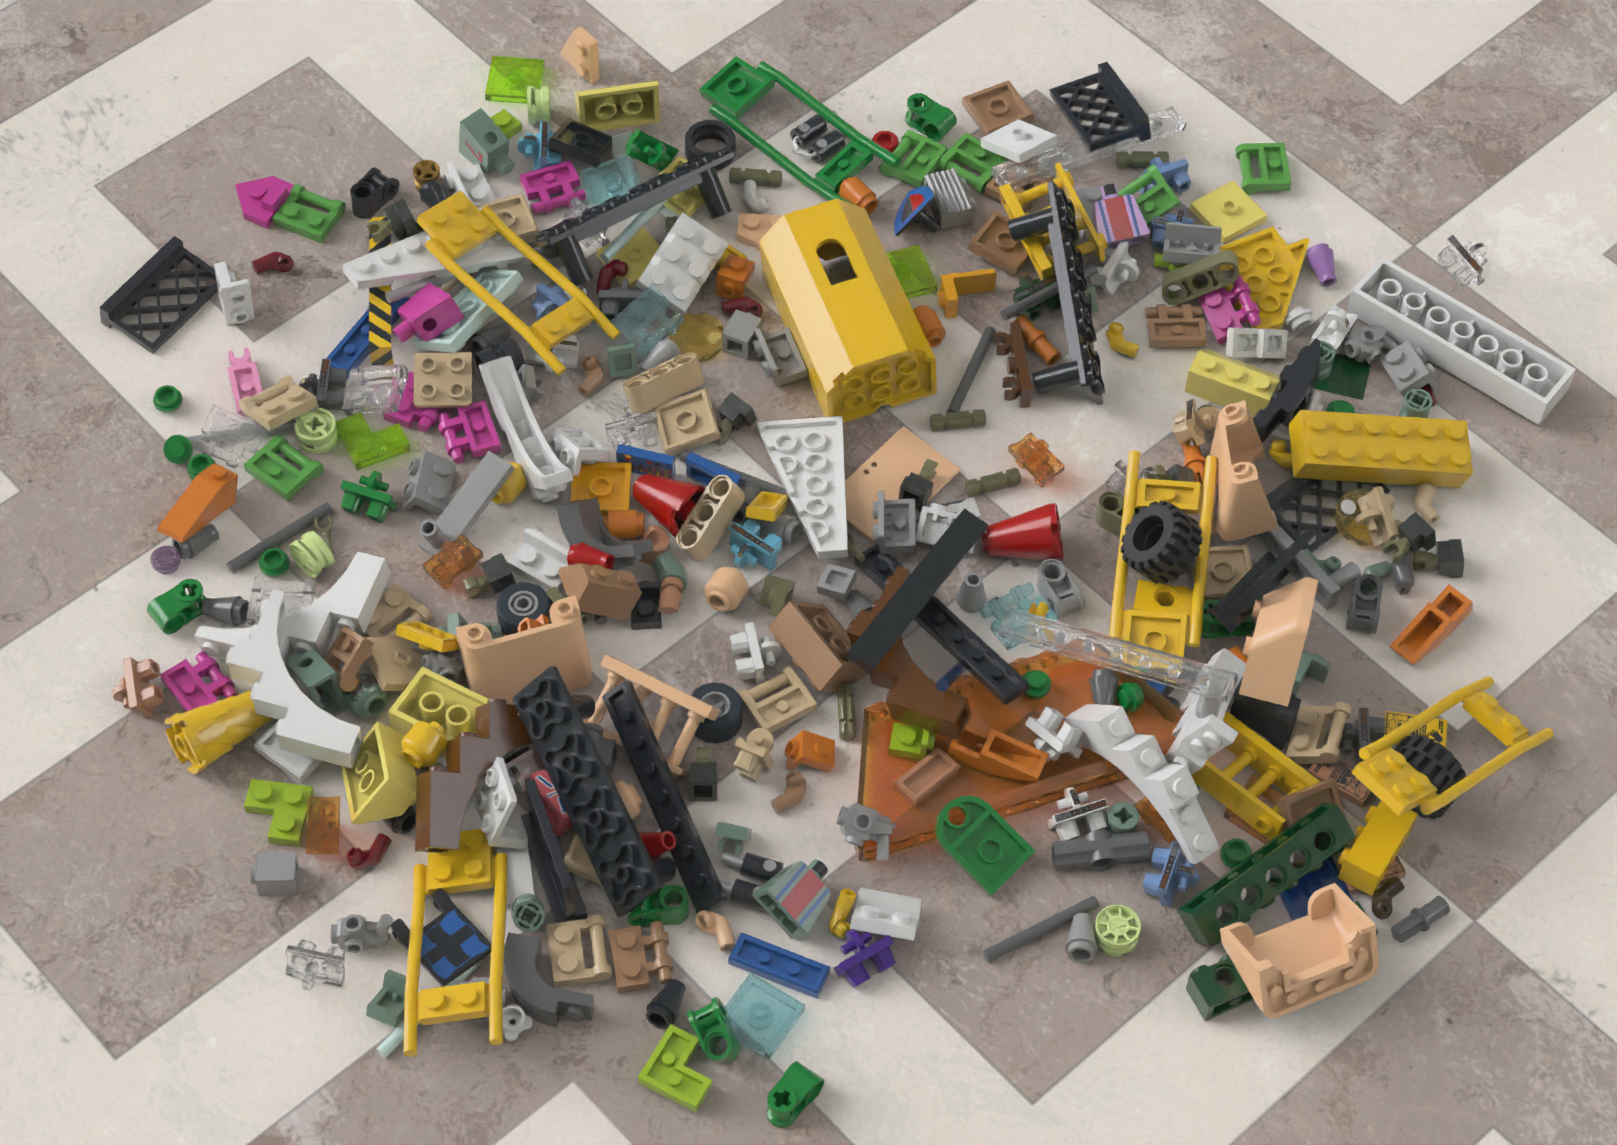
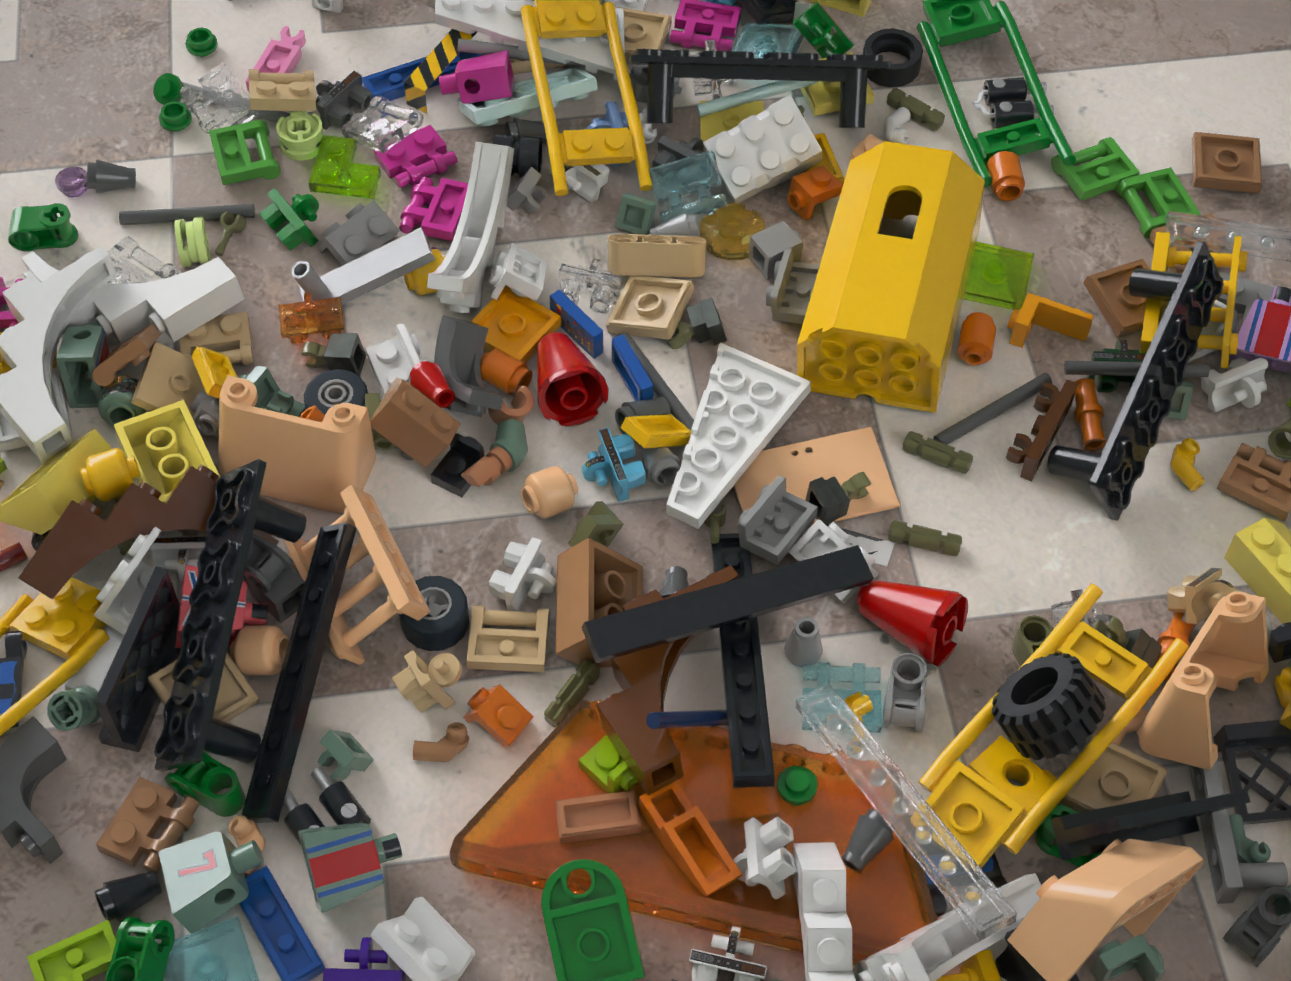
camera: 35 degrees right, 0 degrees up
(200, 503) = (135, 143): orange slope -> none
(227, 609) = (74, 246): dark grey cone -> none
(274, 562) = (159, 233): green plate -> none
(443, 379) = (446, 144): tan bracket -> none
(567, 952) = (86, 775): tan plate -> none
(594, 376) = (599, 217): medium nougat arm -> none
(609, 272) = (692, 125): dark red arm -> none
(658, 842) = (242, 709): red cone -> none
(703, 777) = (364, 674): pearl dark grey piece -> none
(710, 517) = (587, 409): tan beam -> none
(715, 957) = (207, 877): none -> torso
(742, 304) = (802, 224): dark red arm -> none
(836, 582) = (666, 548): light grey tile -> none
(842, 908) = (383, 910): yellow arm -> none
(864, 823) = (468, 826): light grey piece -> none
(887, 140) = (1079, 137): red tile -> none
(914, 207) = (1056, 222): shield -> none
(930, 119) = (1143, 134): green piece -> none
(951, 202) = (1101, 224): light grey brick -> none
(1019, 141) = (1221, 201): white plate -> none
(1036, 459) = (988, 539): clear orange hips -> none
(1130, 696) = (892, 864): green plate -> none

